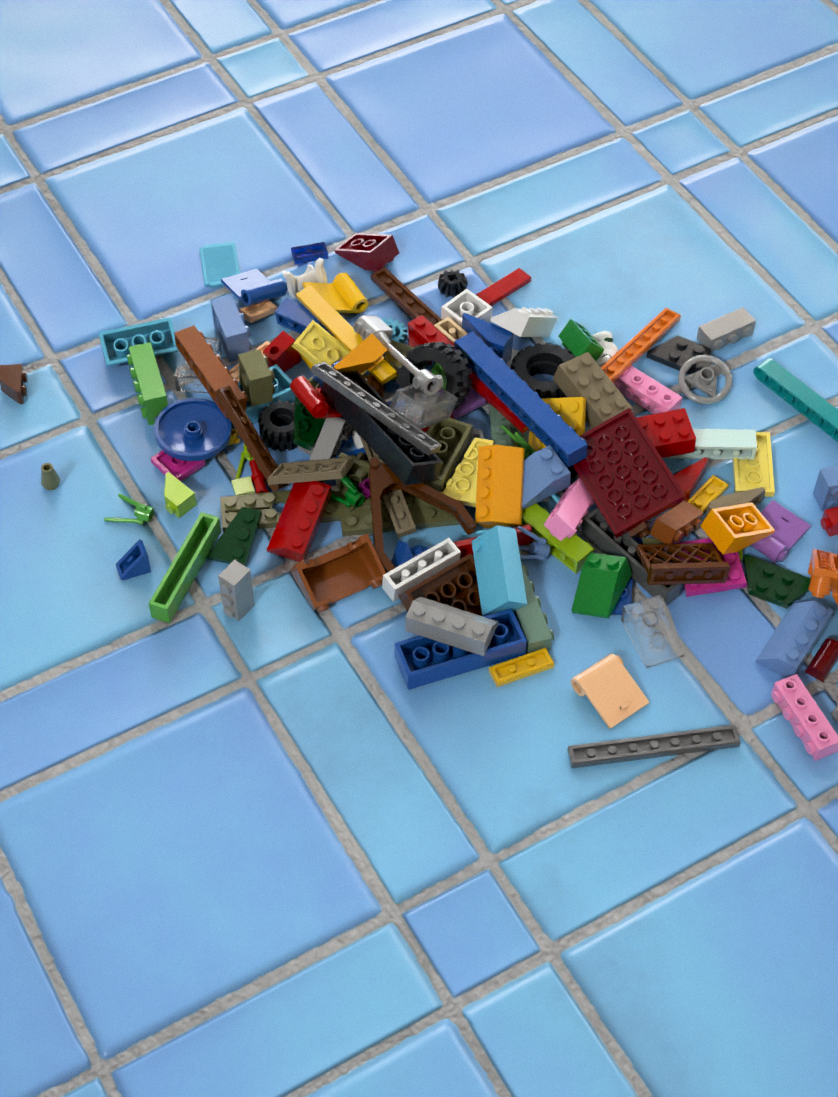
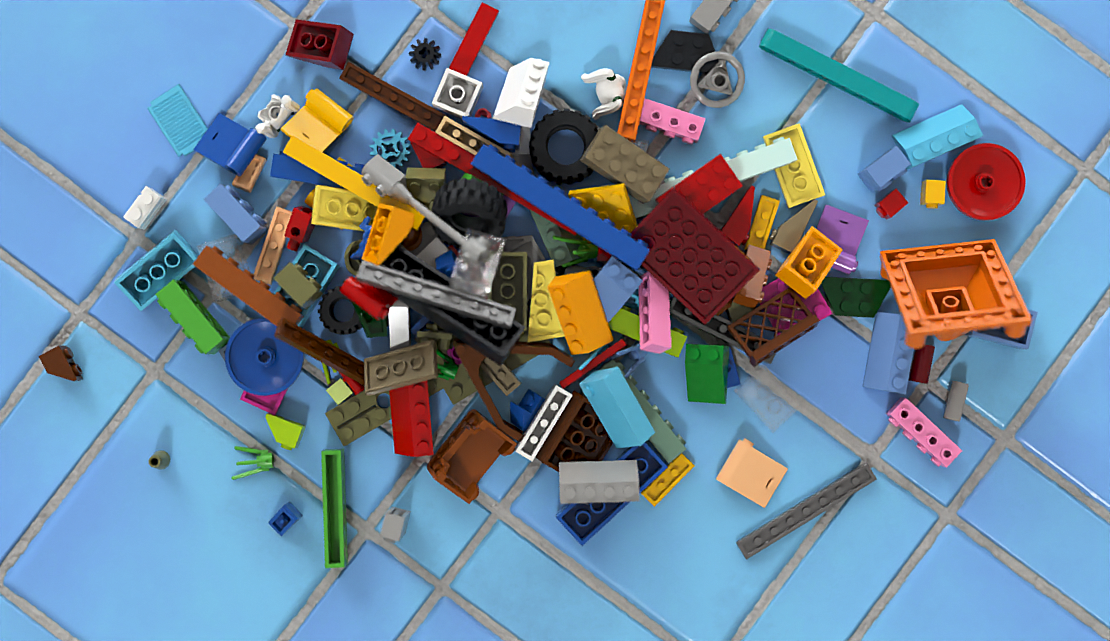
camera: 25 degrees left, 35 degrees up
(155, 303) = (144, 208): none -> white brick
(237, 538) = (364, 454): dark green wing -> none
(309, 253) = (263, 71): clear blue plate -> none
(579, 340) = (585, 91): green brick -> none

